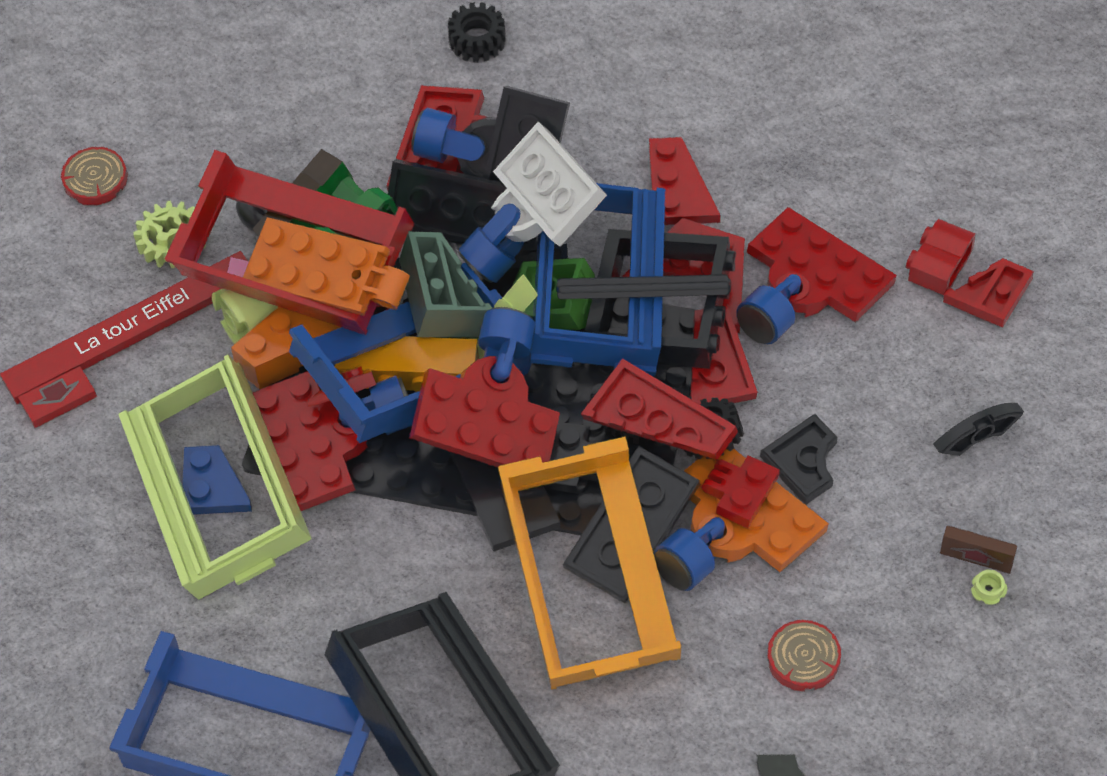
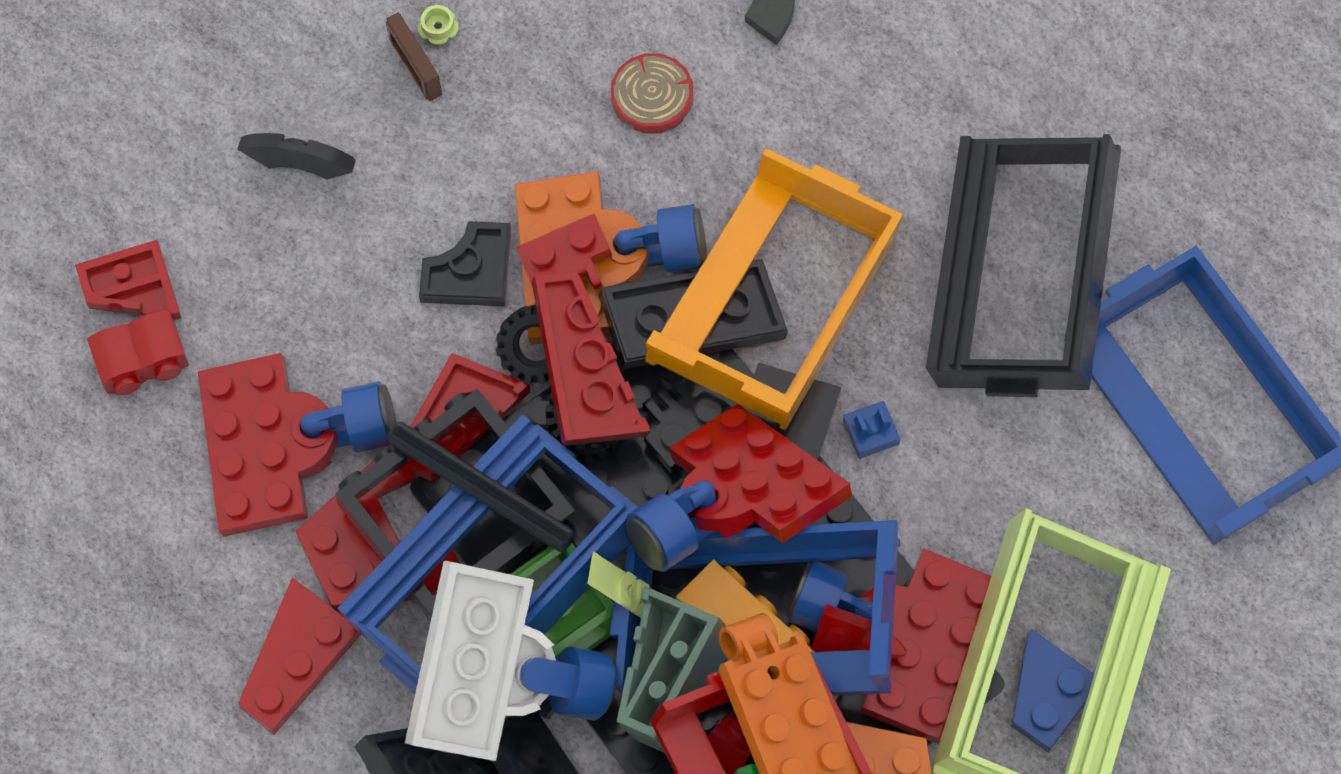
camera: 140 degrees left, 10 degrees up
(456, 551) = (871, 429): none -> blue tile

